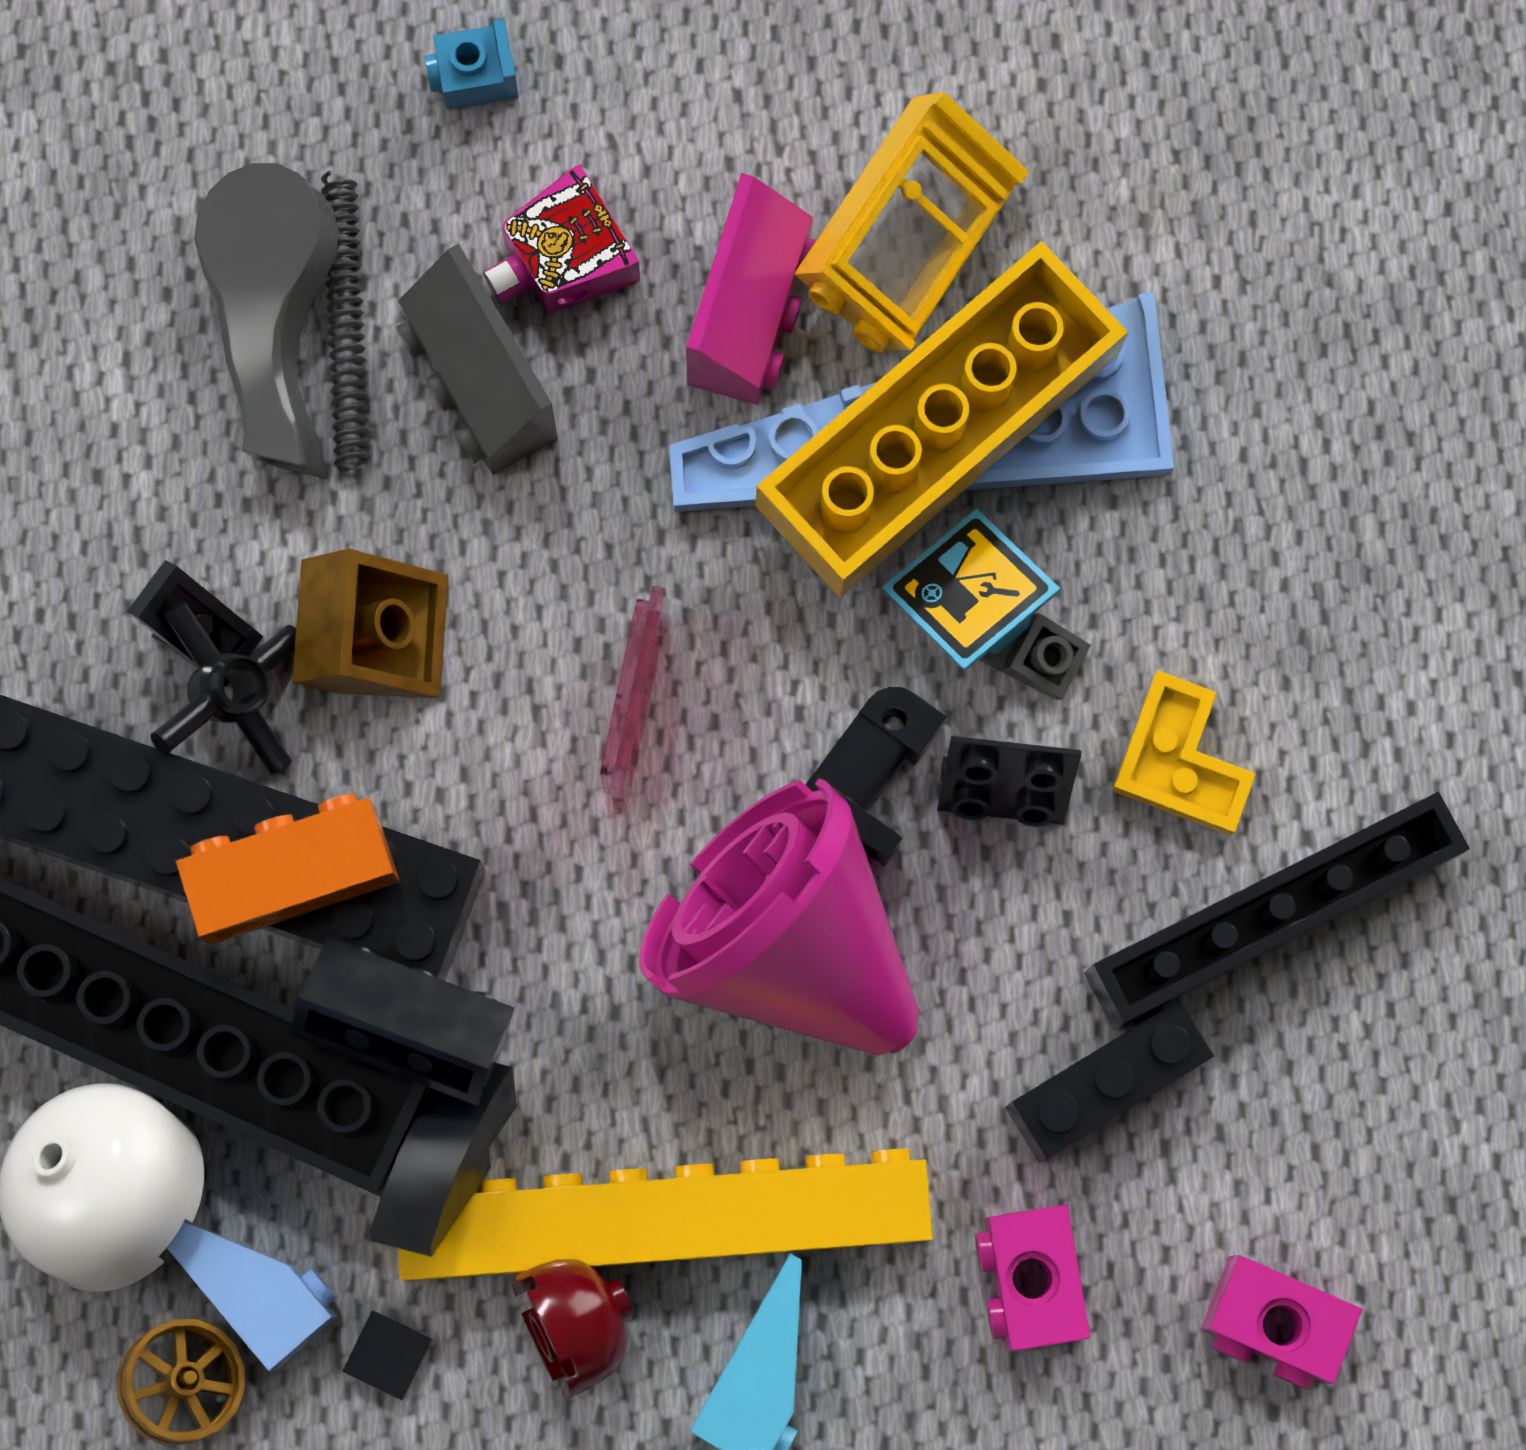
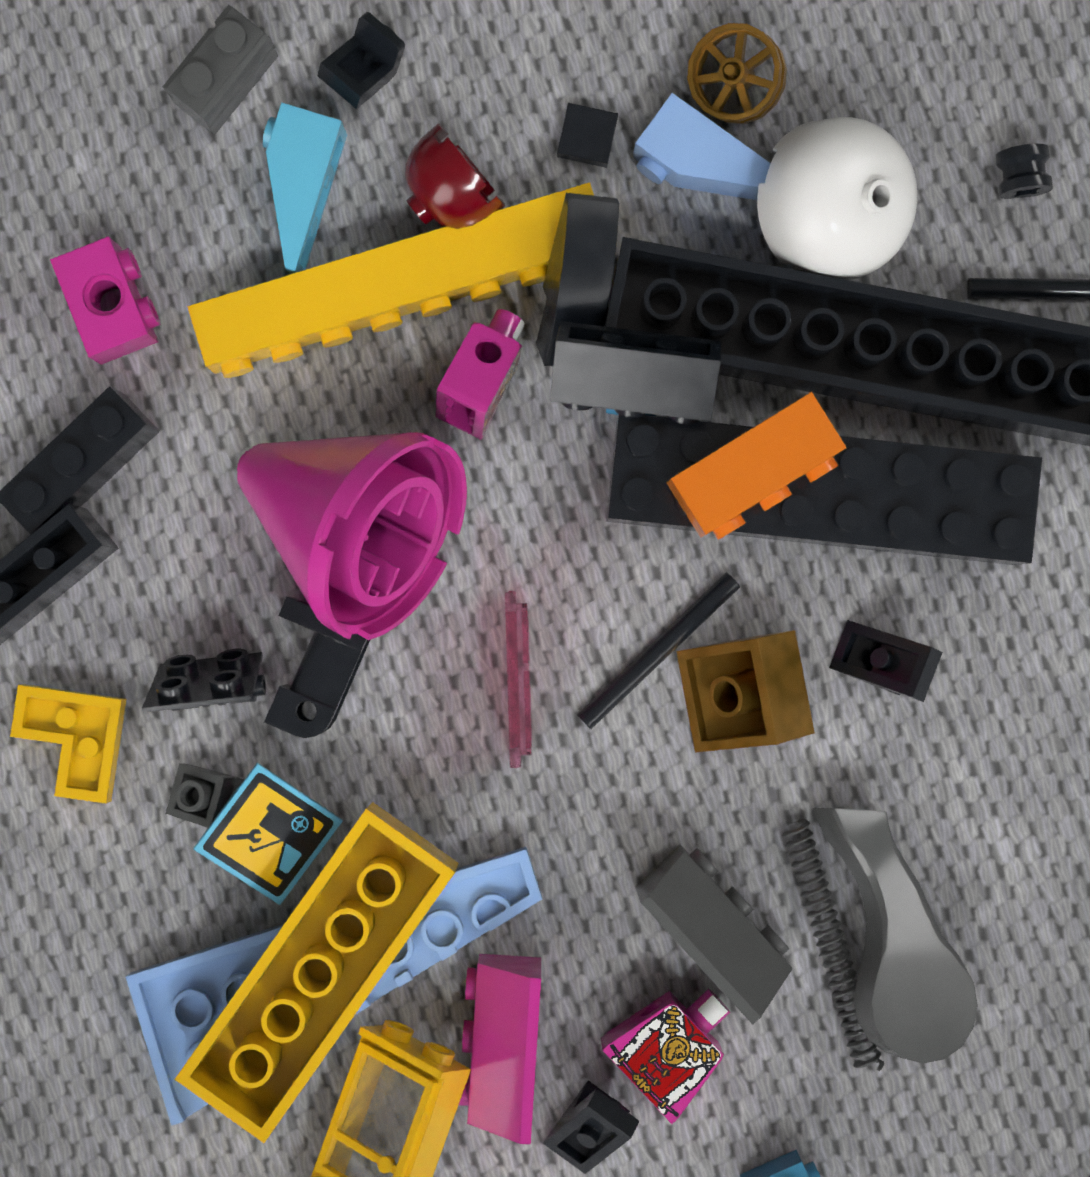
camera: 170 degrees right, 10 degrees up
(207, 692) = (861, 607): black bar -> none
(460, 702) = (658, 650): none -> black bar
(610, 1055) = (480, 374): none -> dark pink torso
(673, 182) = (591, 1128): none -> black slope

